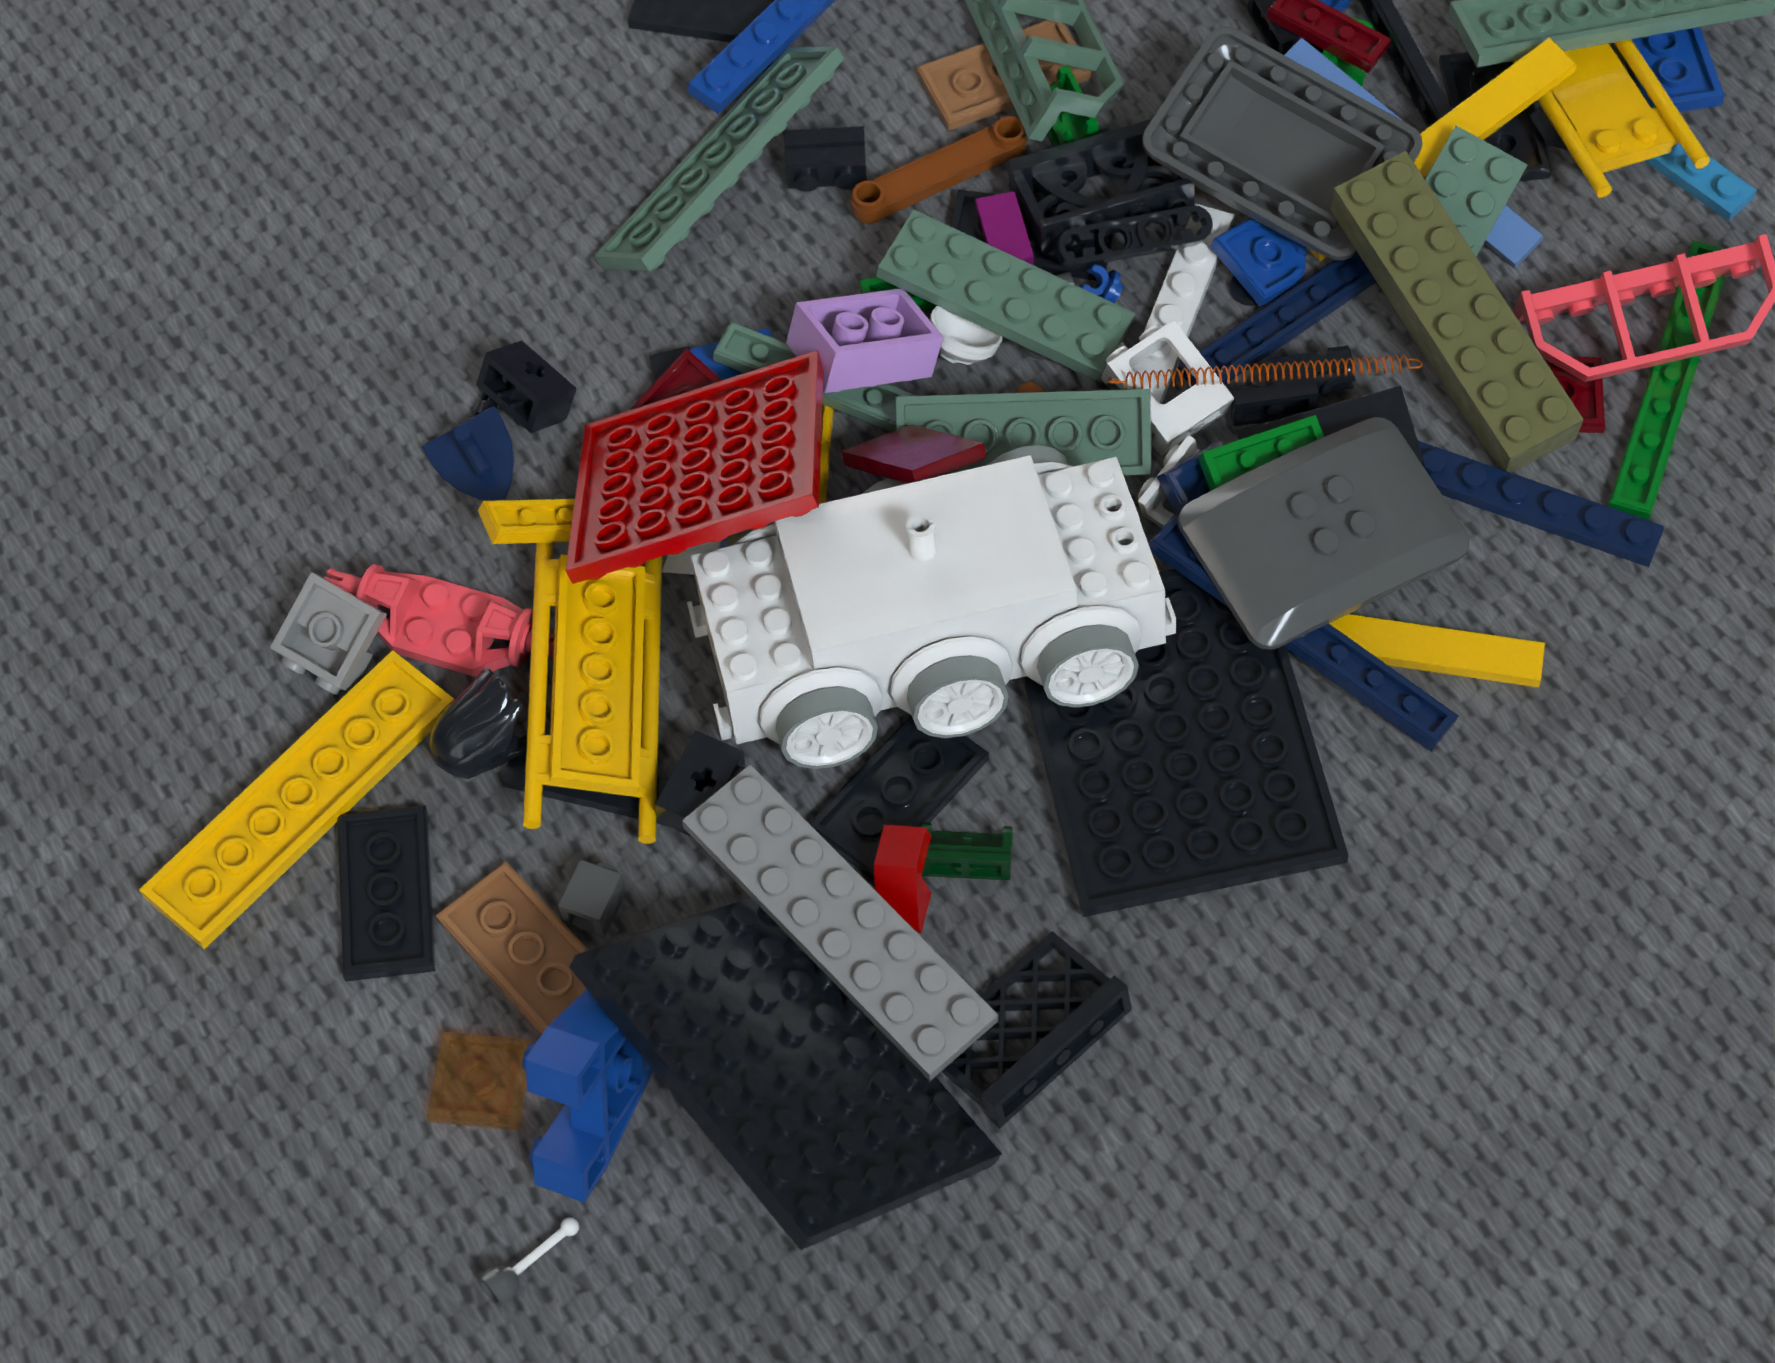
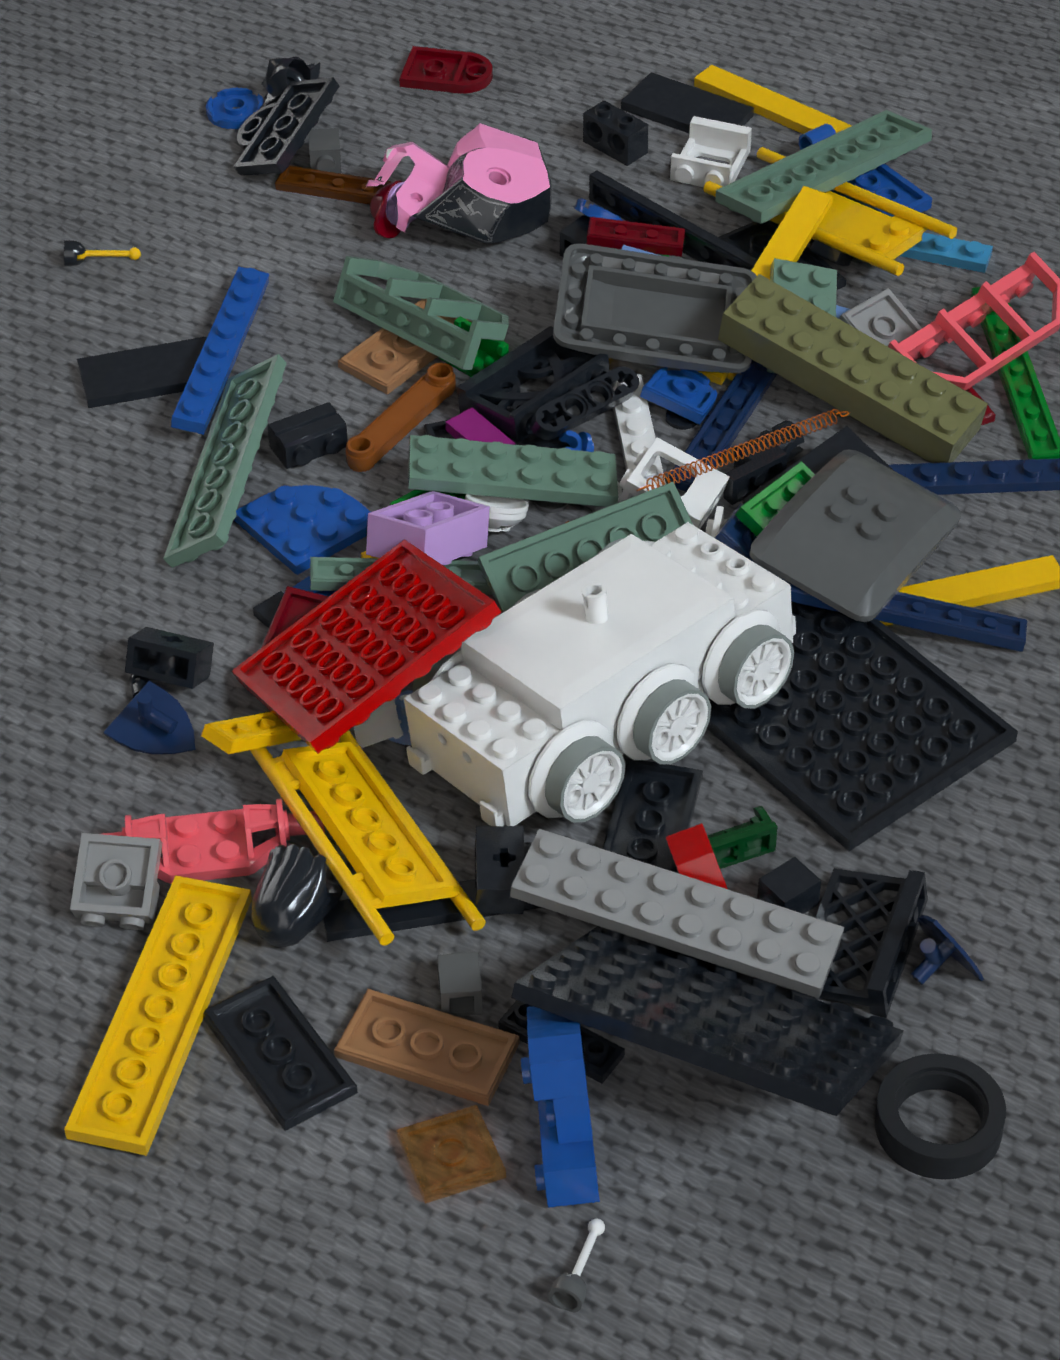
camera: 30 degrees left, 15 degrees down
(763, 267) = (304, 523): none -> blue plate
(914, 454) = (534, 575): dark red tile -> none
(965, 1213) = (947, 1074): none -> black tyre
(981, 940) = (790, 887): none -> black brick
(1093, 1078) = (937, 955): none -> dark blue shield
(1545, 253) = (882, 318): none -> light grey tile

